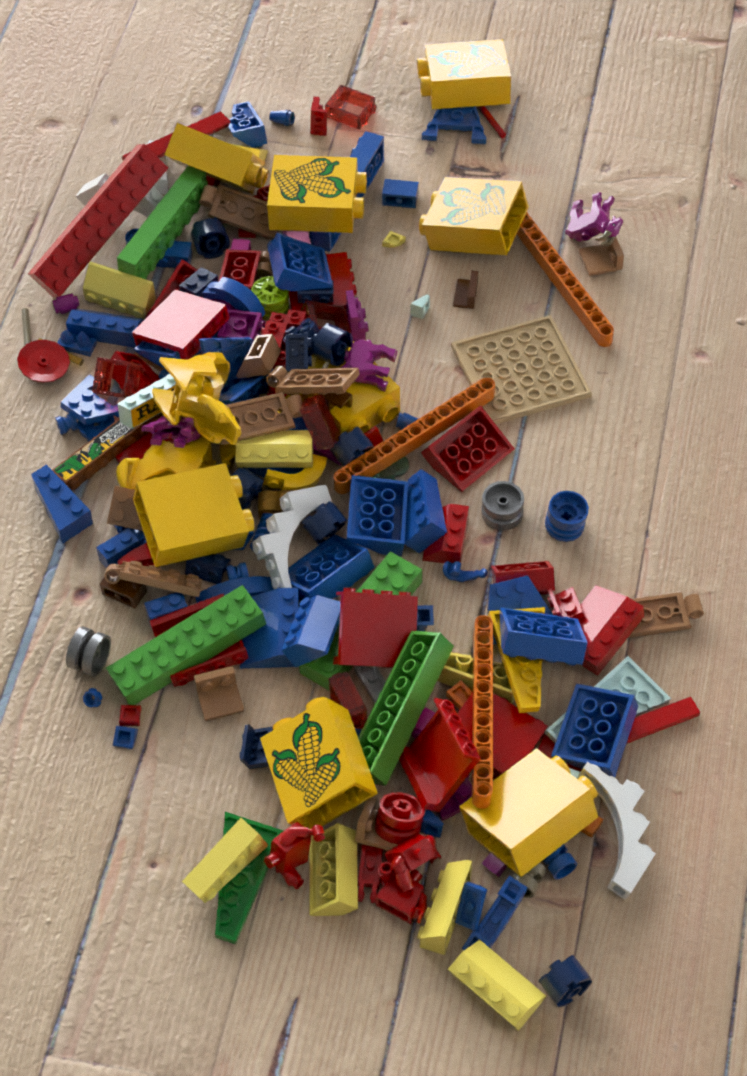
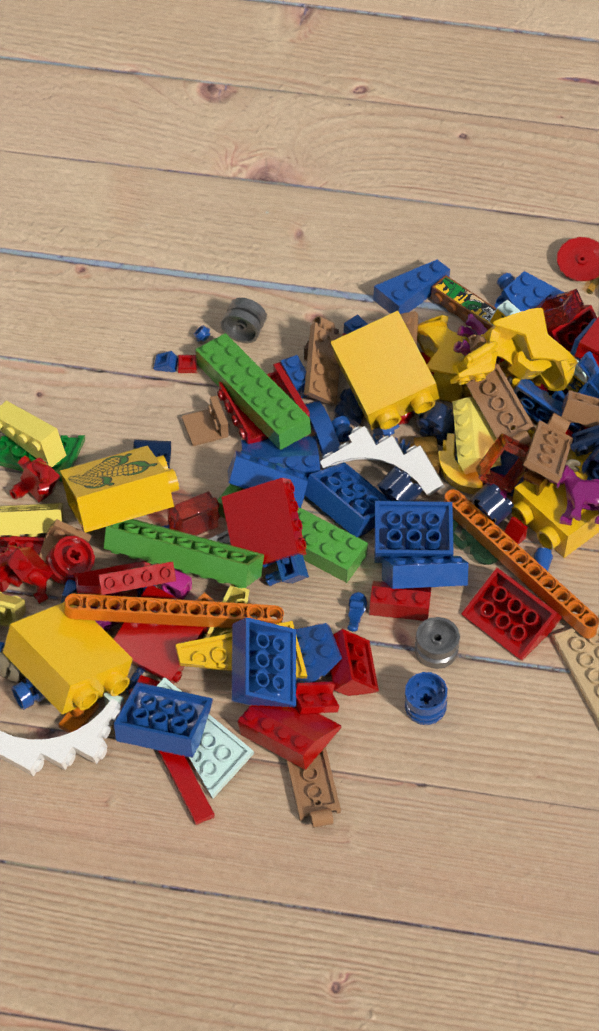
camera: 85 degrees right, 0 degrees up
(186, 419) = (476, 341): none -> medium nougat tile

